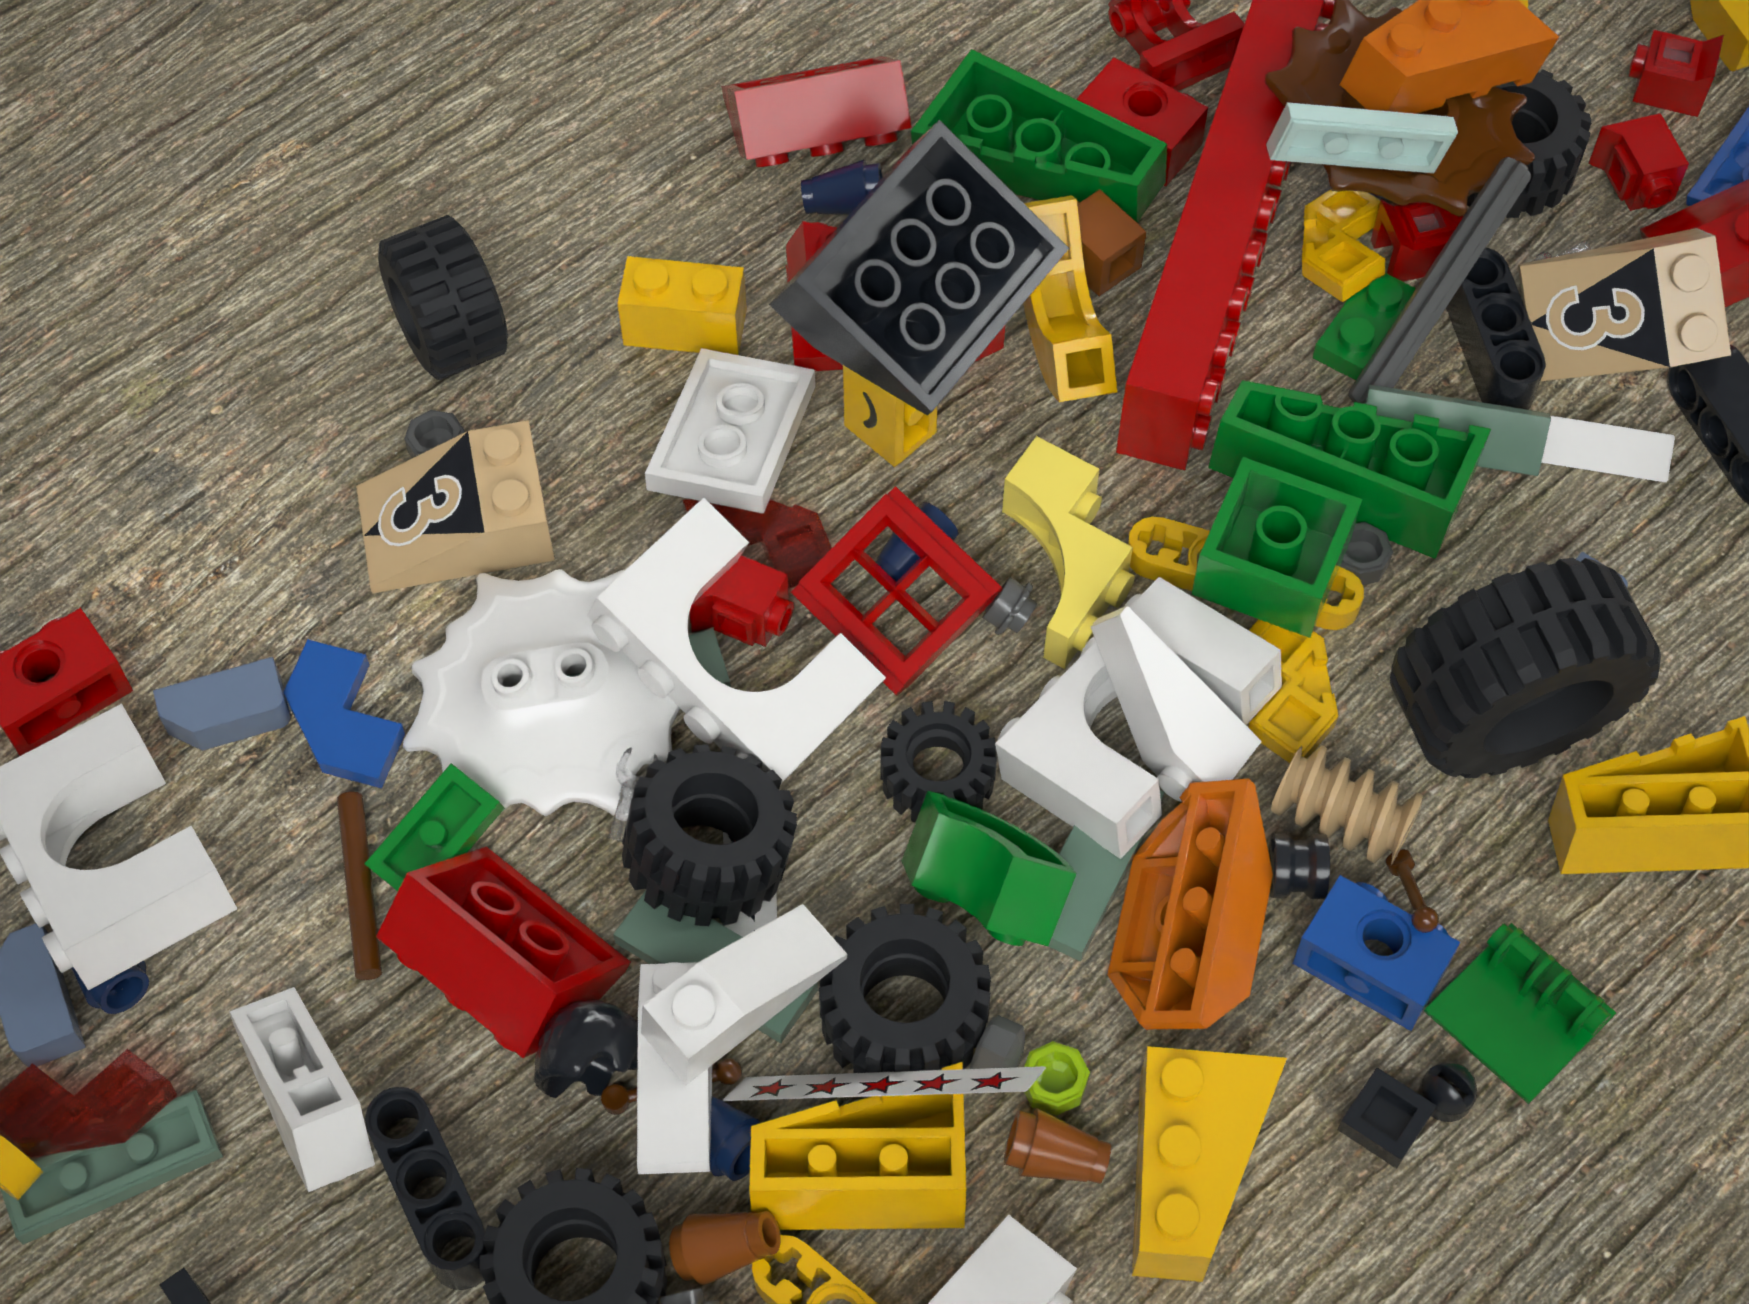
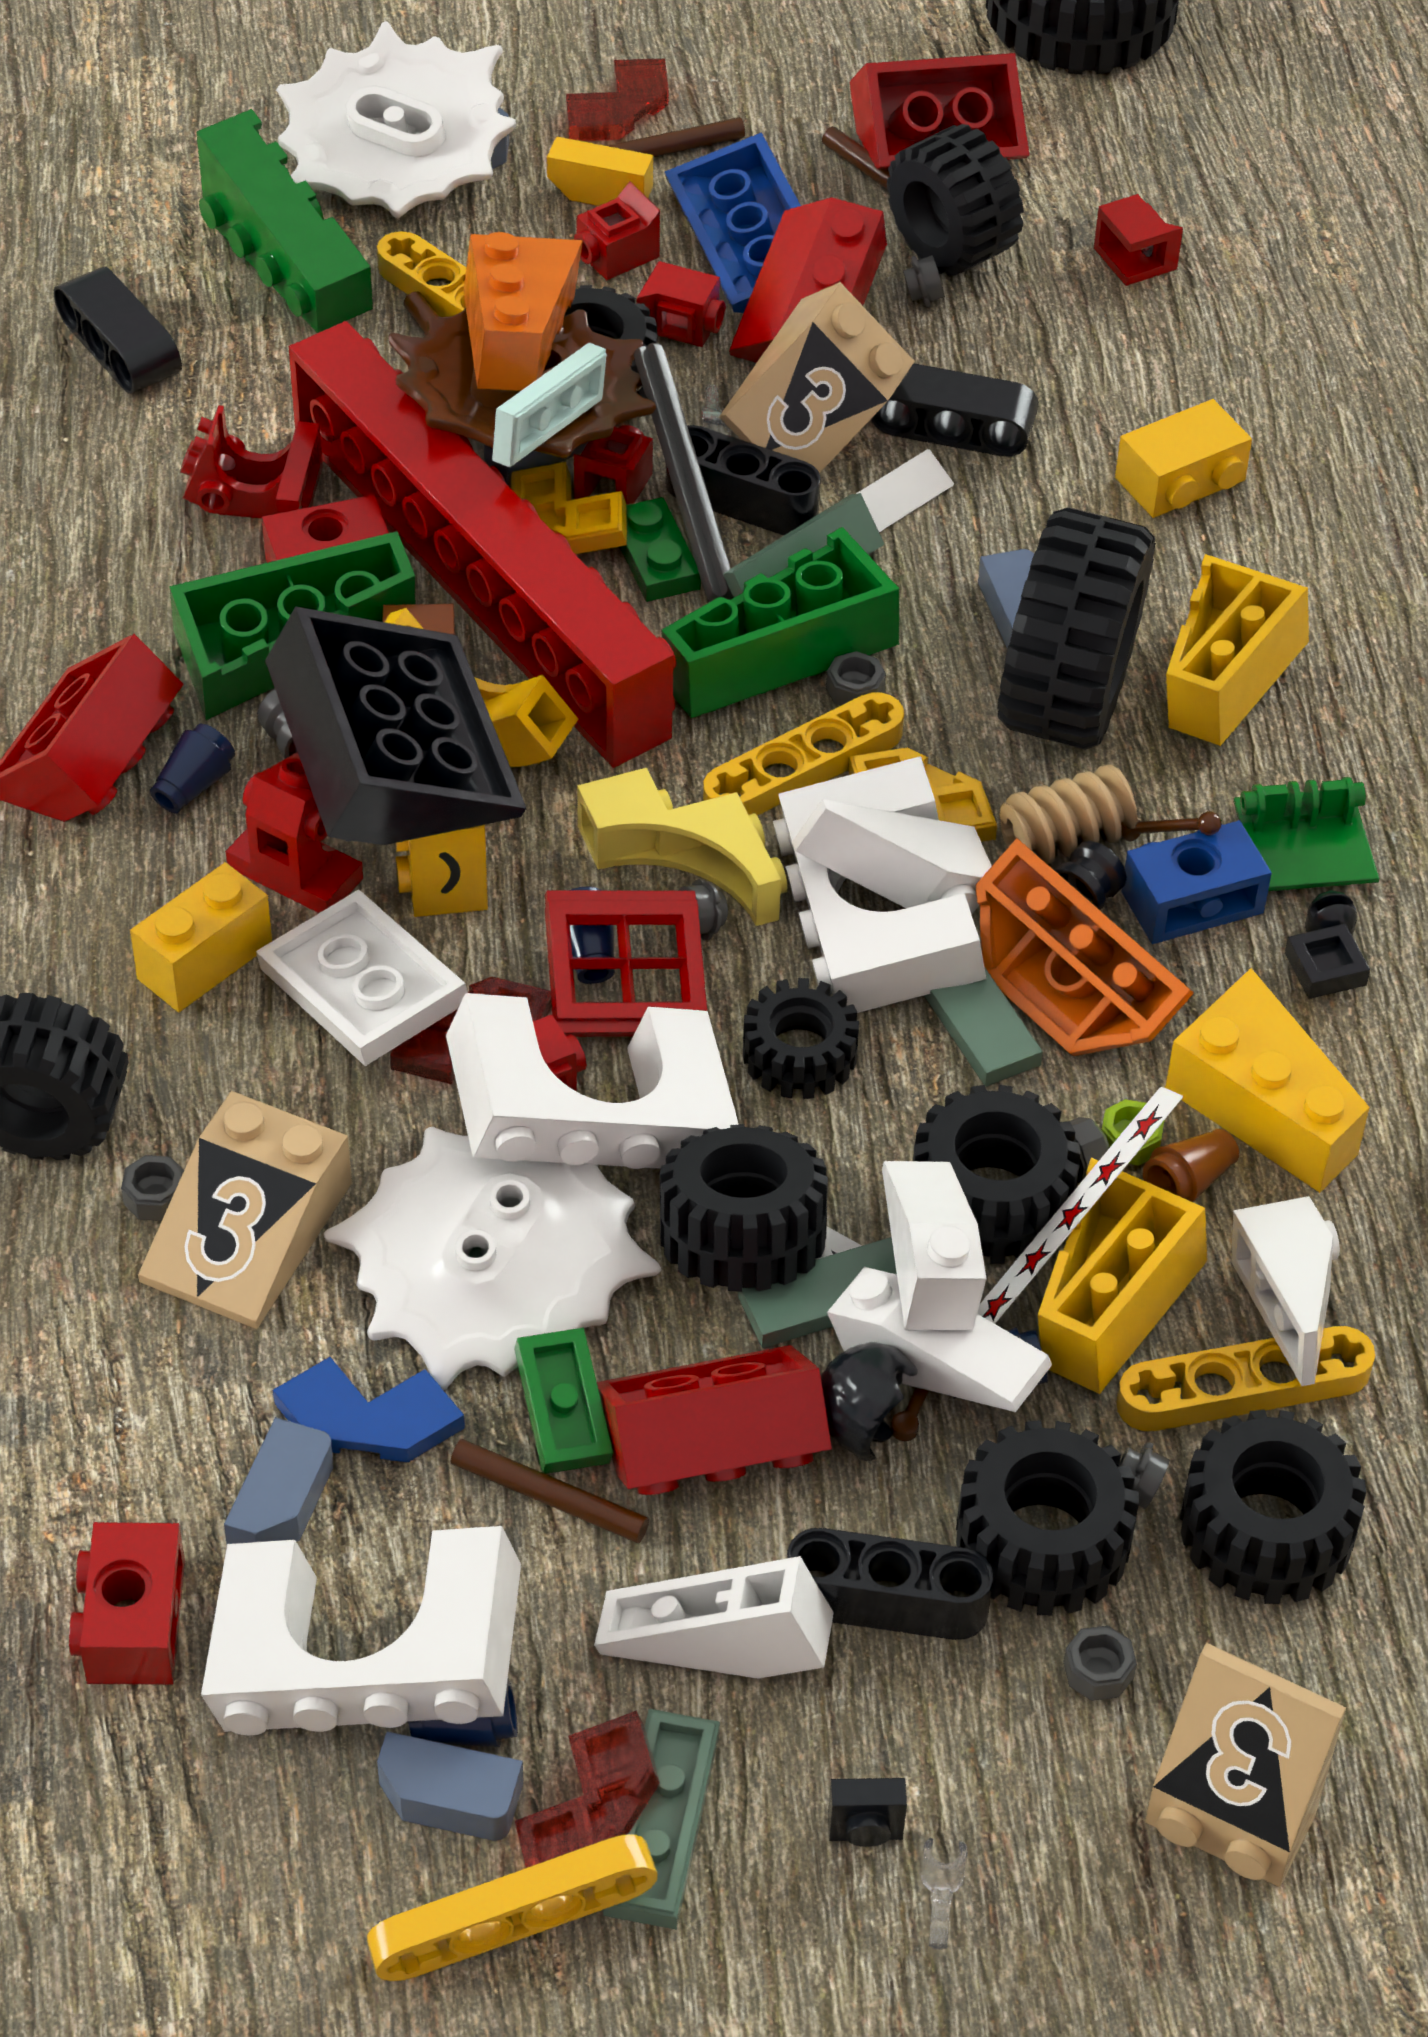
camera: 55 degrees left, 10 degrees down
(628, 783) = (637, 1230): clear hand -> none
(721, 1243) = (1107, 1402): dark orange cone -> none
(987, 869) = (933, 1052): green brick -> none
(1276, 547) = (828, 704): green brick -> none

